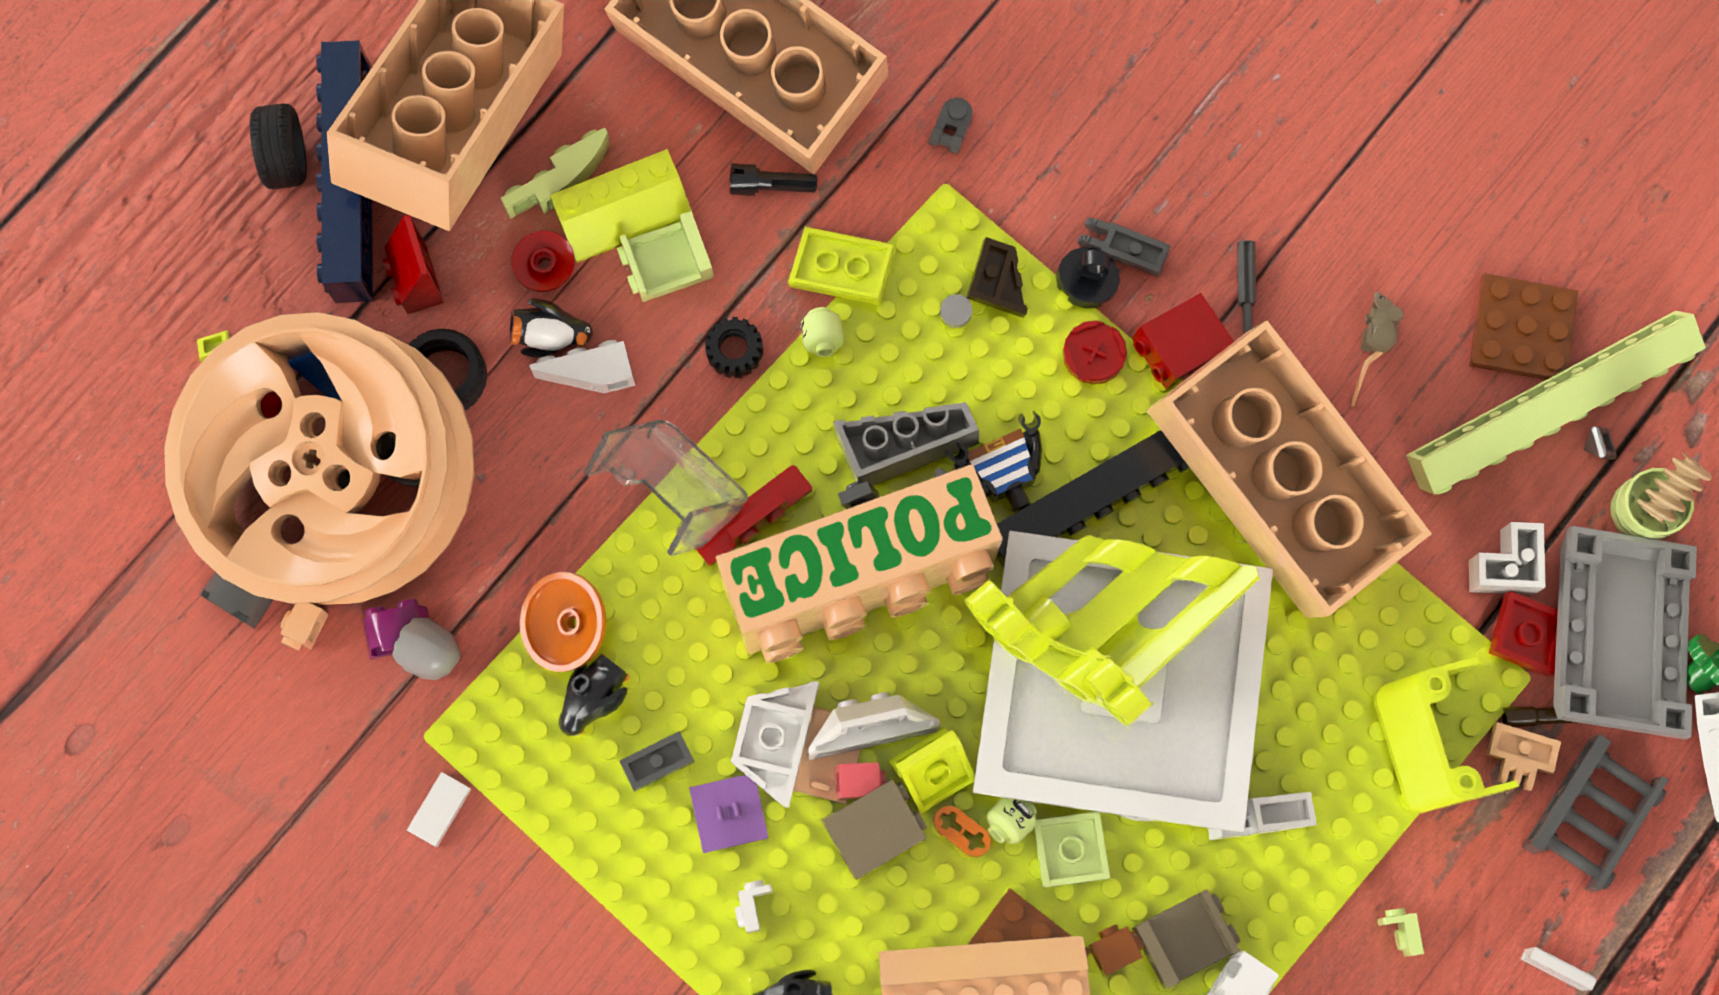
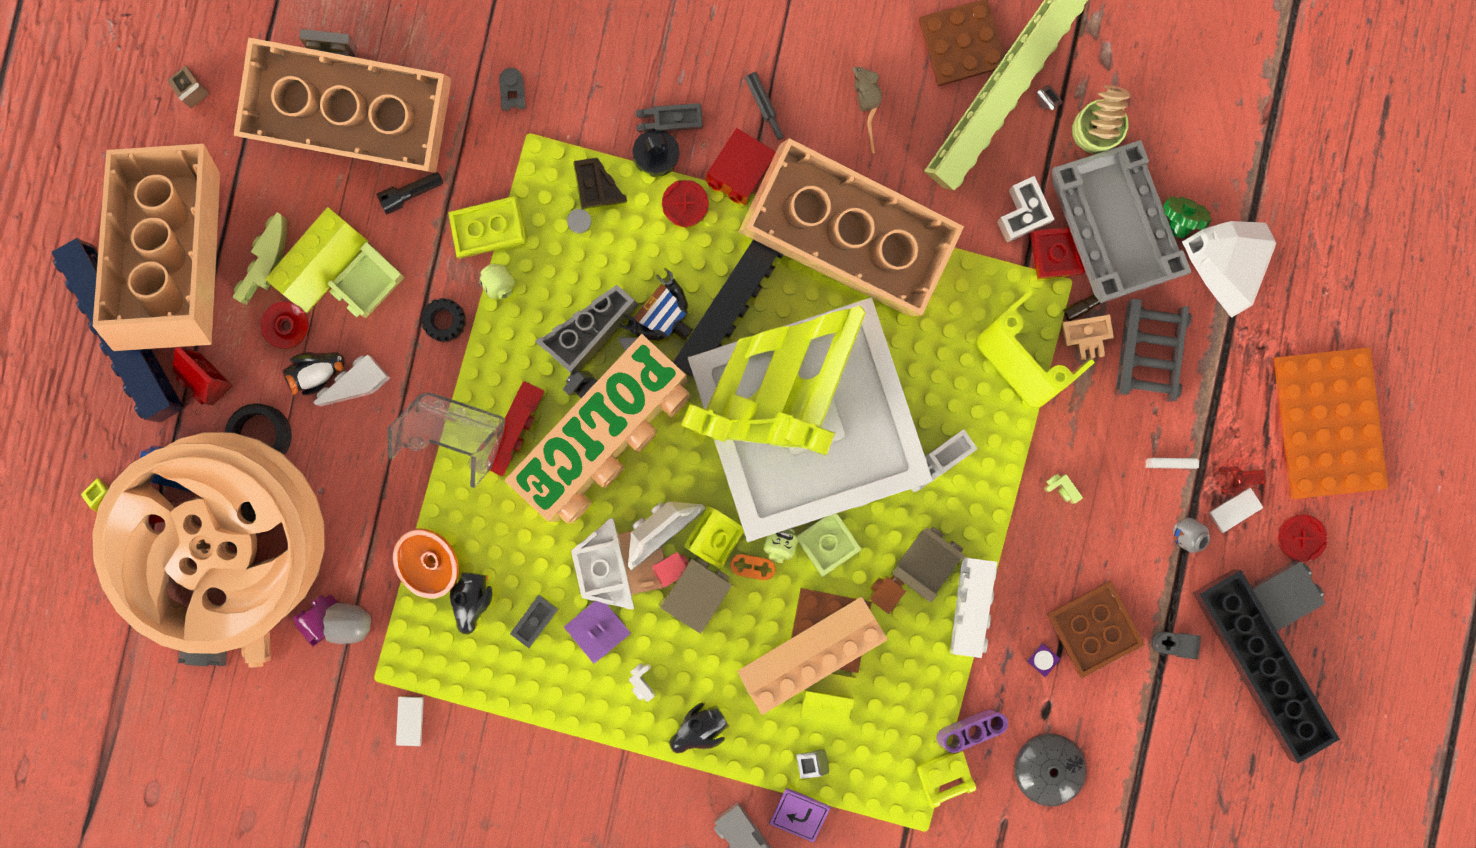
camera: 25 degrees left, 10 degrees up
(278, 146) = (62, 337): black tyre -> none

